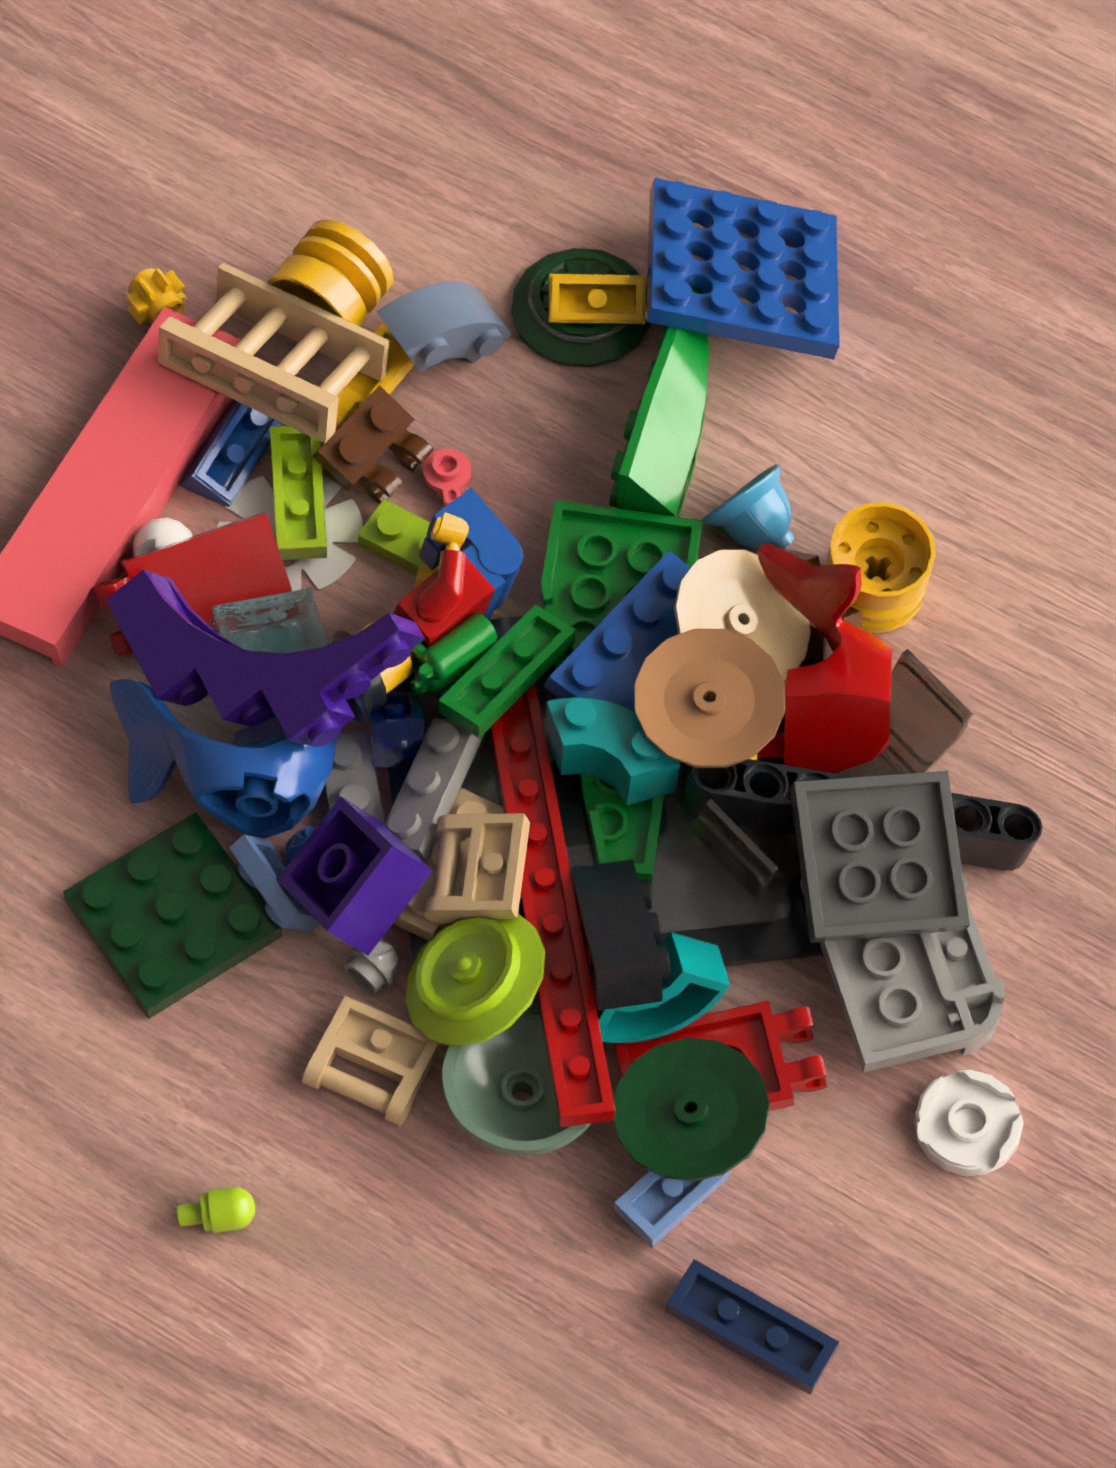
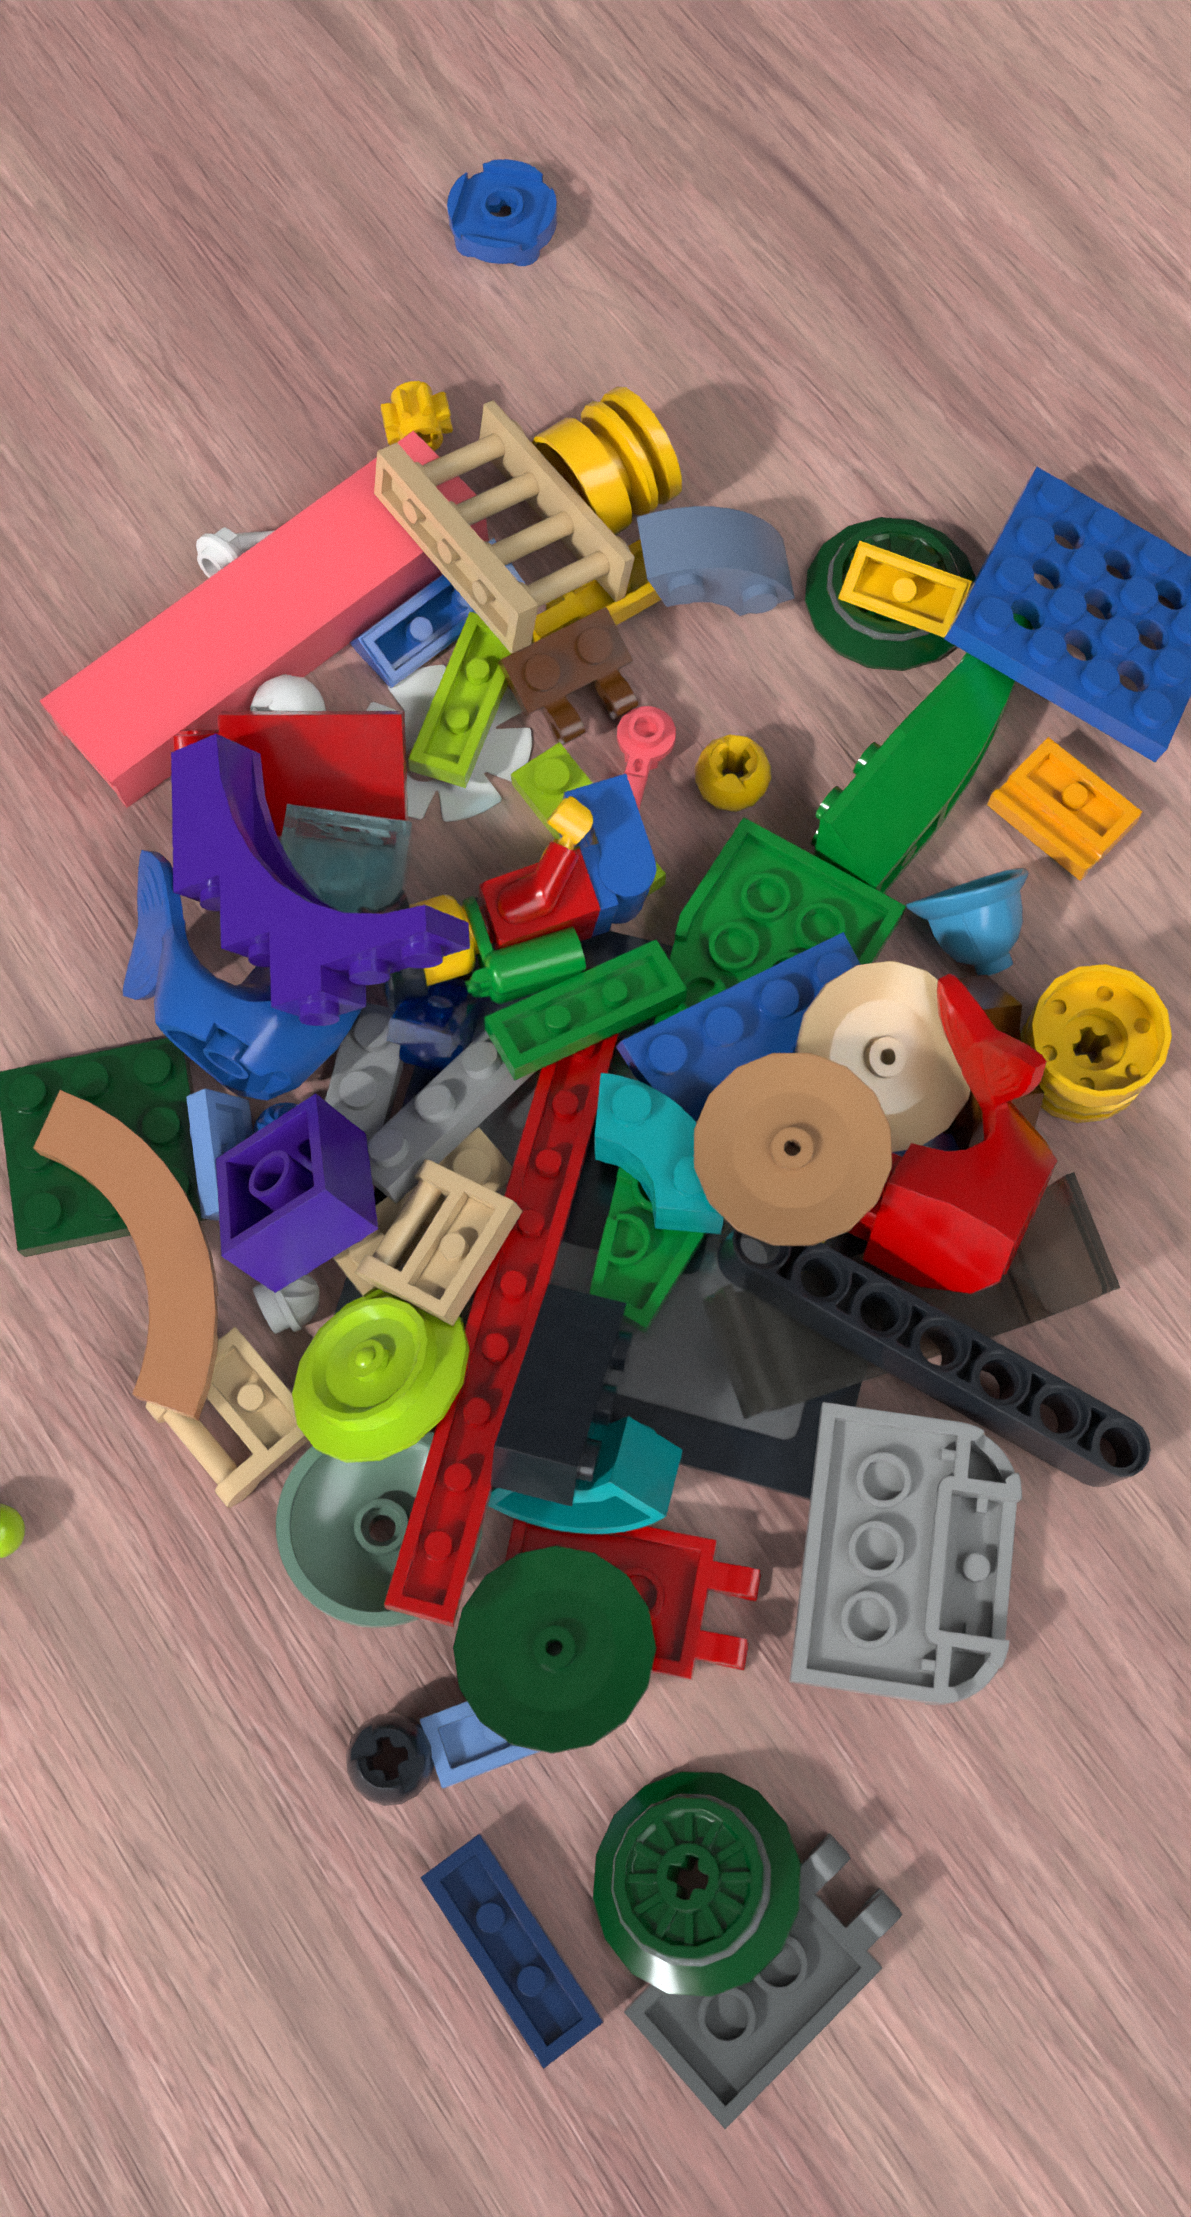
camera: 30 degrees right, 10 degrees up
(50, 449) = (223, 547): none -> white plate
(148, 142) = (507, 238): none -> blue plate
(262, 949) = (169, 1242): none -> nougat tile
(523, 461) = (737, 754): none -> yellow piece
(604, 1257) = (367, 1744): none -> black piece
(782, 416) = (1064, 808): none -> light orange plate
(879, 856) = (920, 1429): dark grey plate -> none
(896, 1237) = (723, 1931): none -> dark green piece
(933, 1275) = (745, 2037): none -> dark grey tile
(968, 1123) = (894, 1795): white tile -> none

